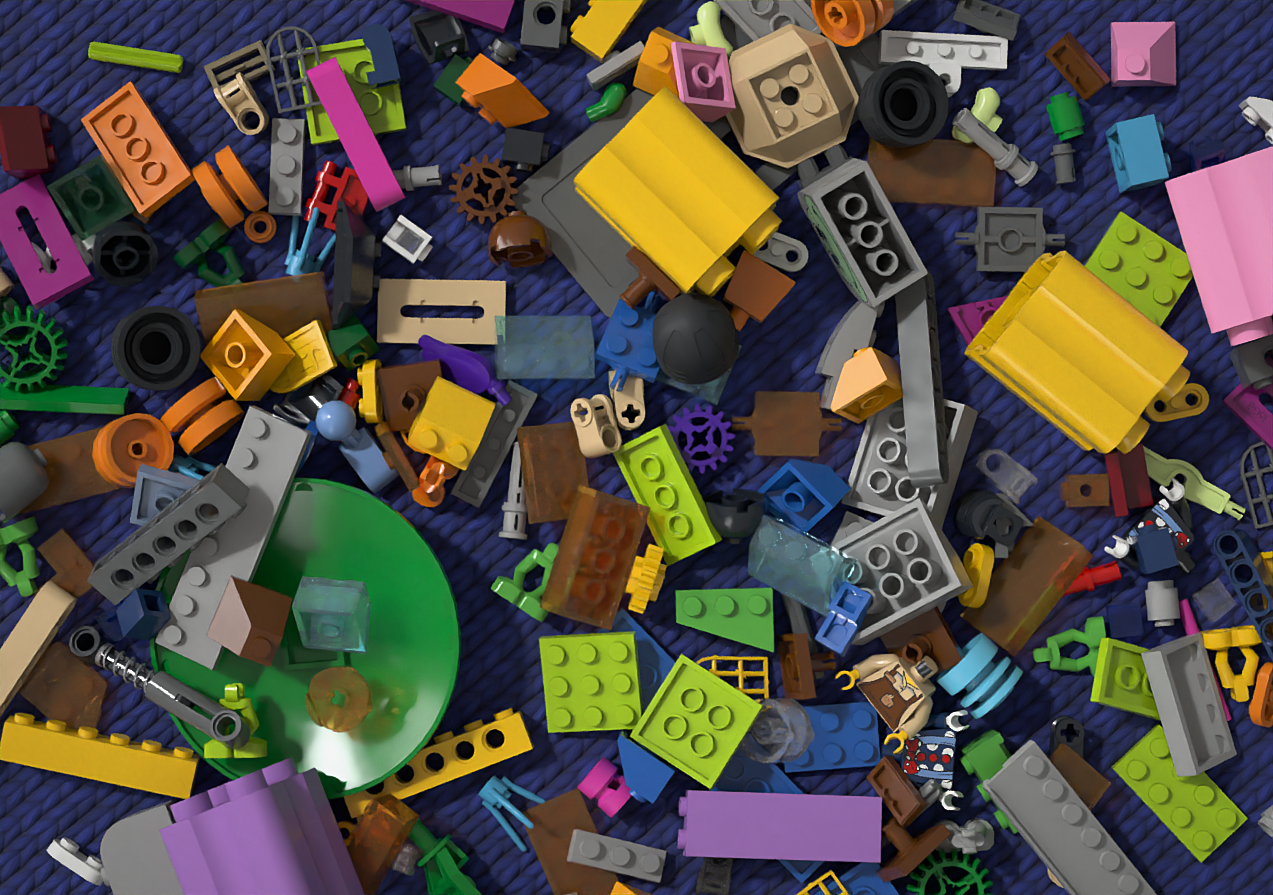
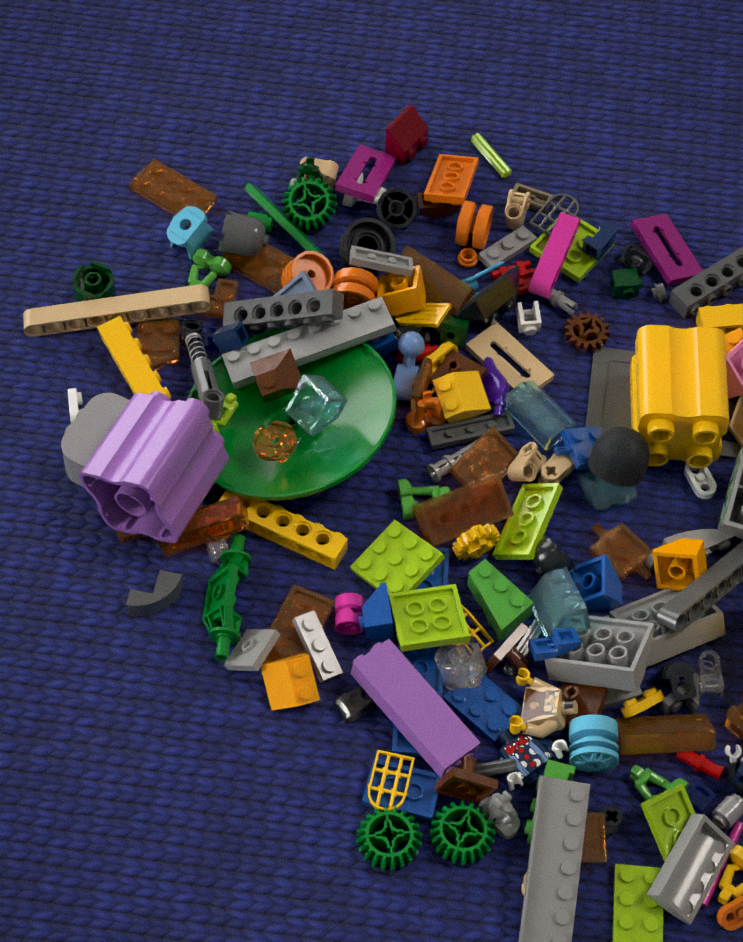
camera: 45 degrees right, 30 degrees down
(91, 197) = (410, 174): clear green slope -> none
(196, 357) = (381, 261): none -> light grey plate
(210, 240) = (441, 241): dark green piece -> none
(496, 794) = (293, 568): dark azure plant -> none
(498, 94) = (638, 296): orange slope -> none
(519, 240) = (578, 362): reddish brown cylinder -> none
(525, 149) = (623, 332): black brick -> none
(649, 279) = (627, 418): reddish brown tile -> none
(711, 448) = (572, 517): dark purple gear -> none
(755, 290) = (670, 483): orange torso -> none
(896, 790) = (490, 750): reddish brown plate -> none

